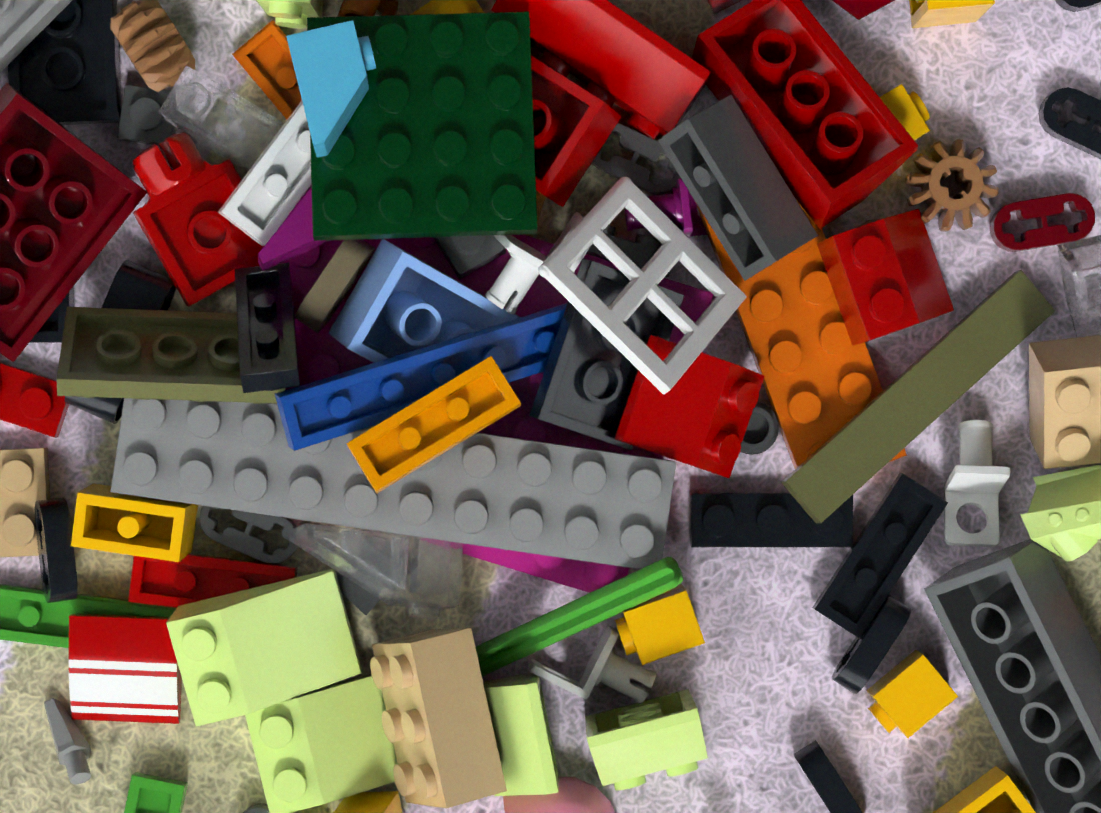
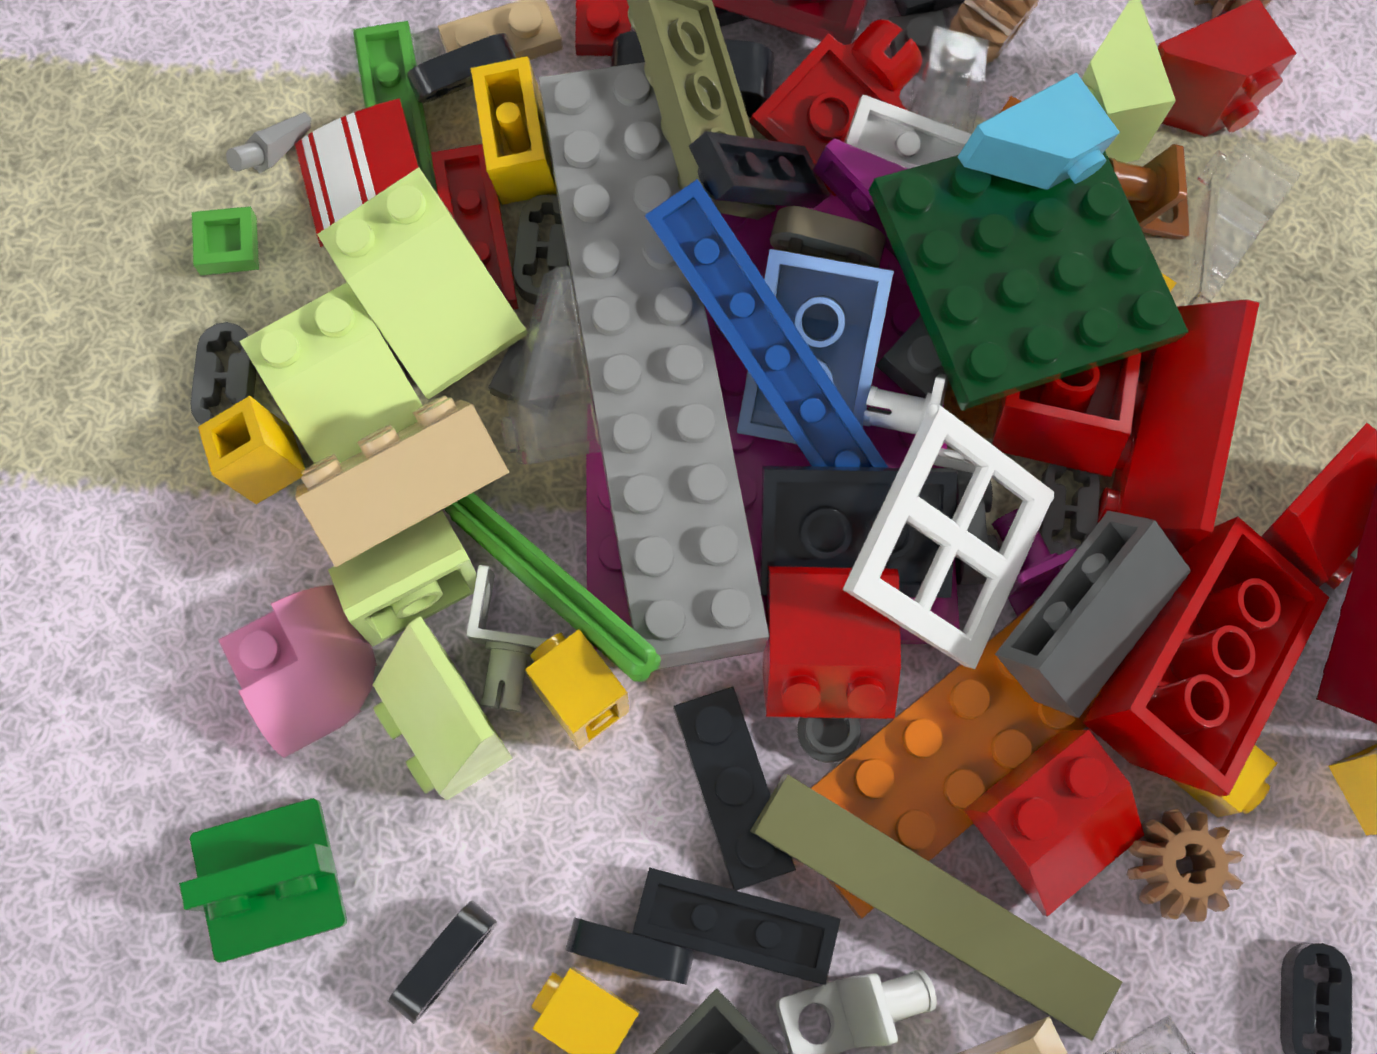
camera: 65 degrees right, 15 degrees down
(433, 424) = (720, 354): light orange plate -> none
(1041, 209) = (1196, 981): dark red beam -> none

